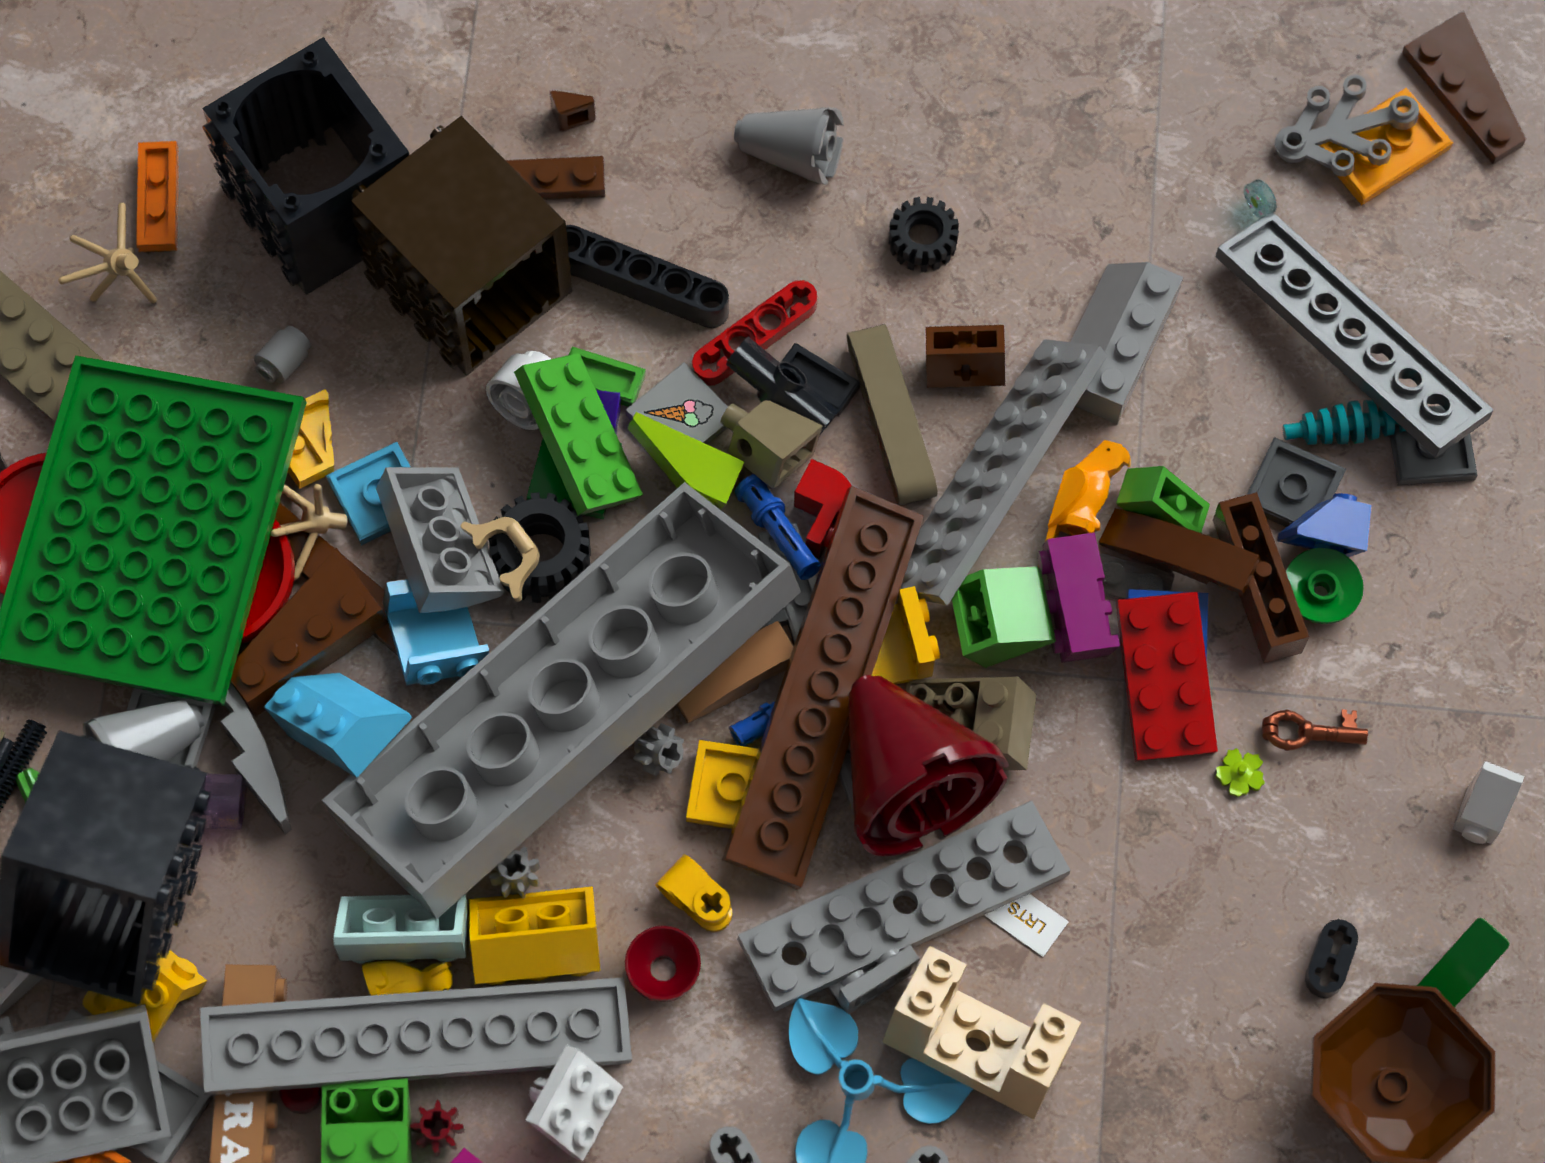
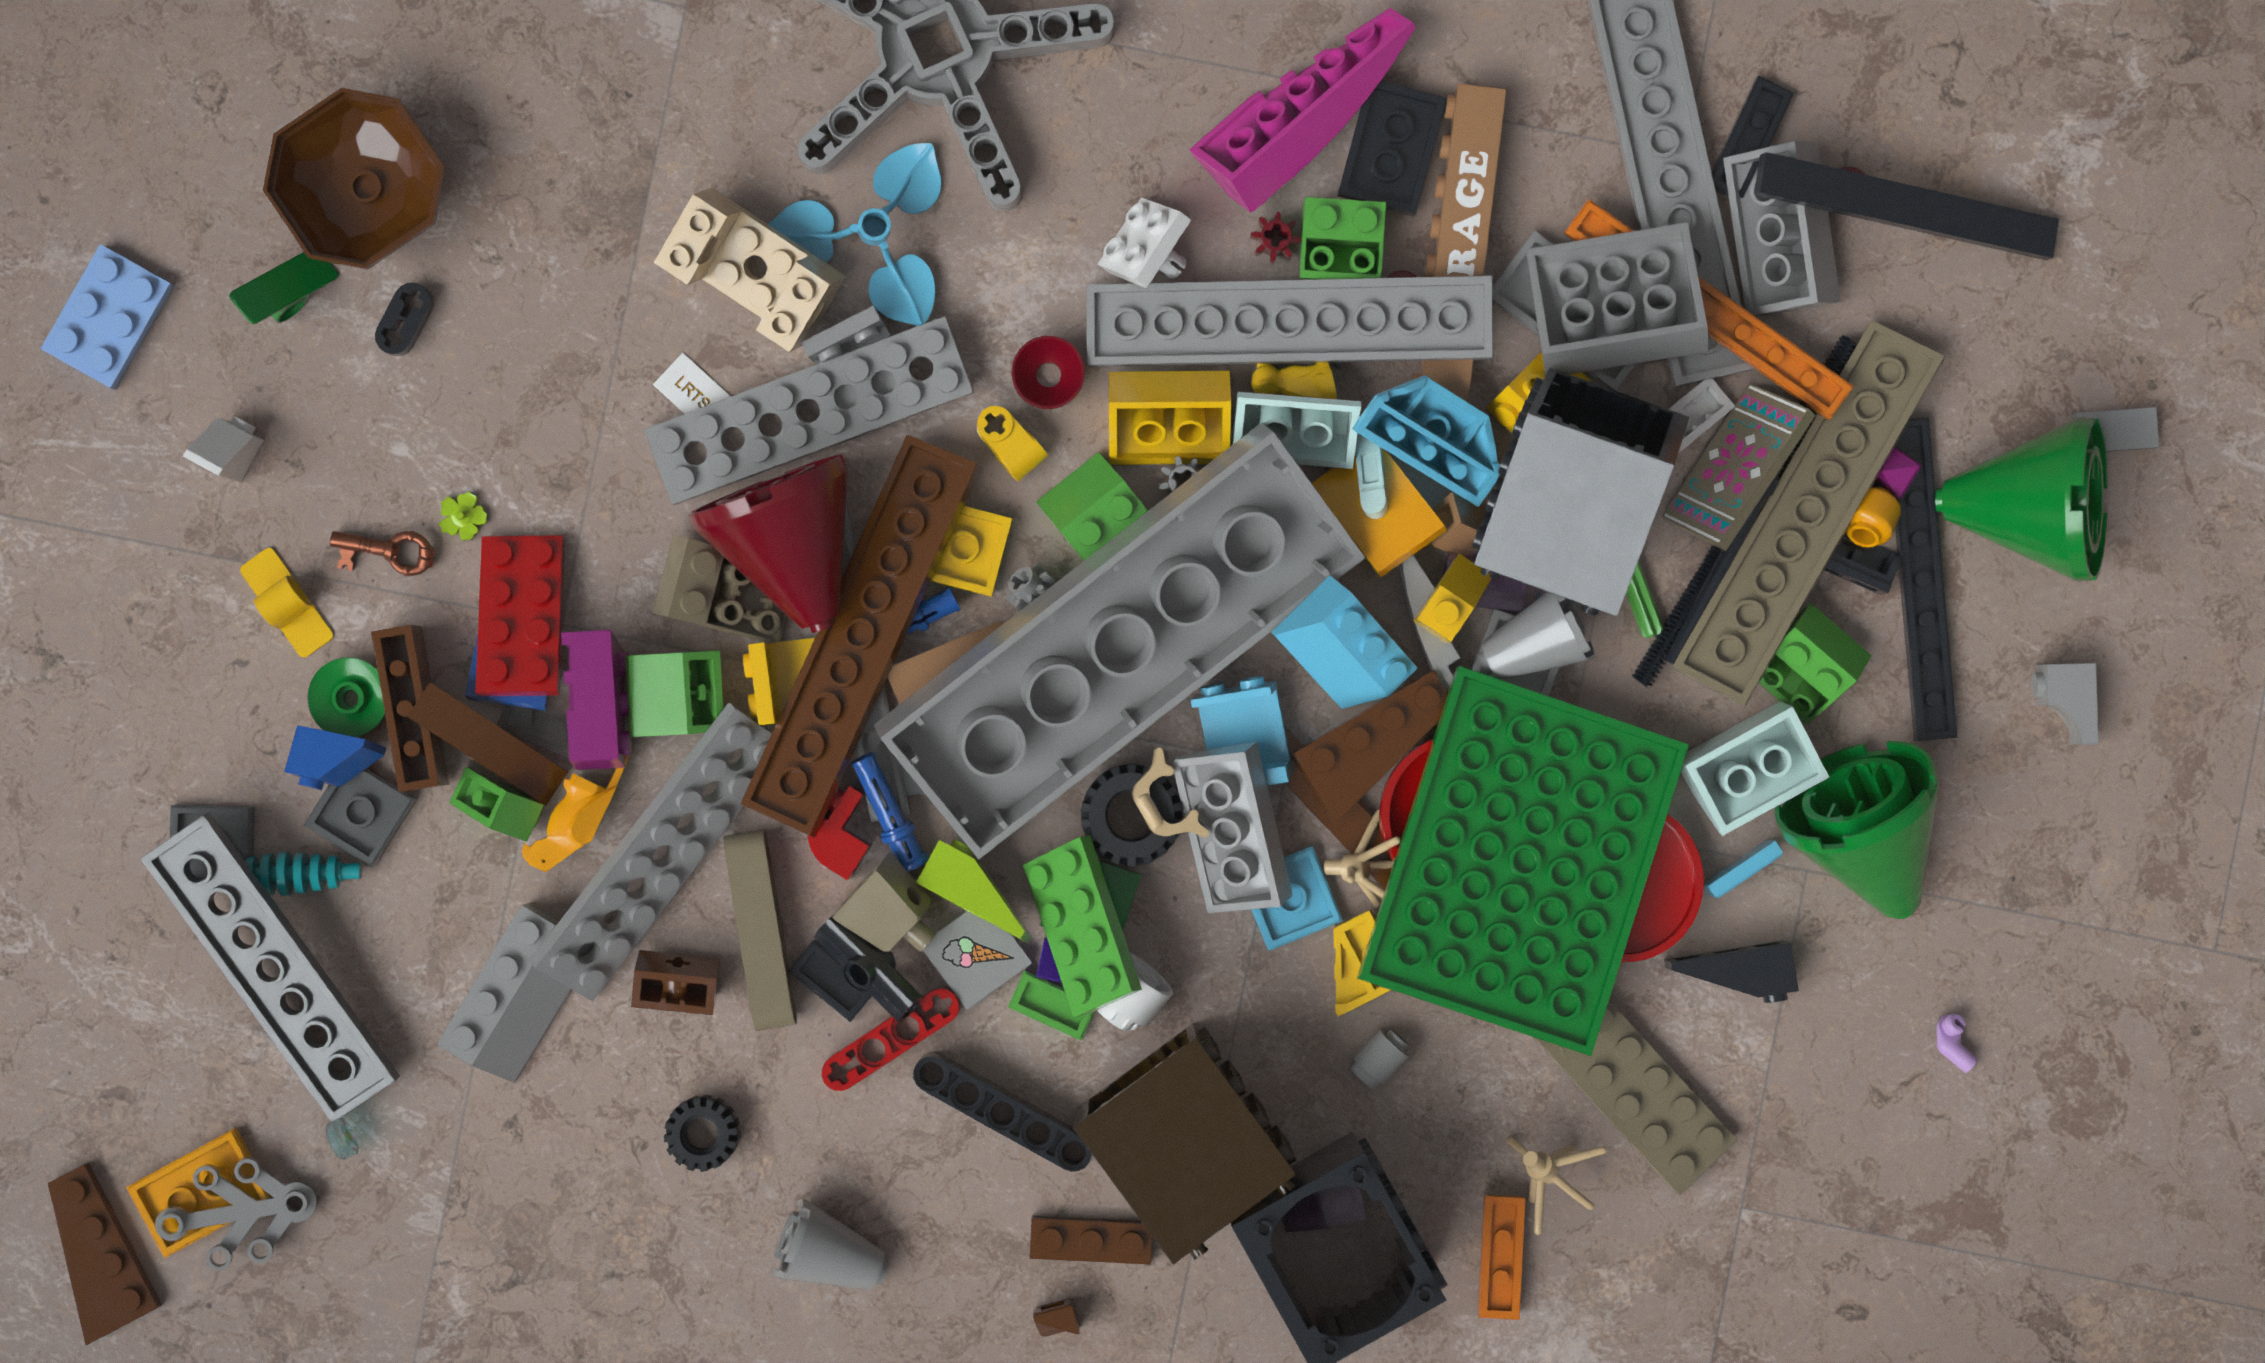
camera: 175 degrees left, 20 degrees up
(230, 856) = (1461, 523): none -> medium nougat panel
(232, 765) = (1453, 599): none -> yellow slope
(256, 929) = (1435, 435): none -> medium azure wedge
(311, 860) = (1396, 535): none -> light orange tile
(321, 894) = (1371, 478): none -> light aqua piece
(604, 836) = (1091, 506): none -> bright green slope
(1403, 673) = (285, 603): none -> yellow piece

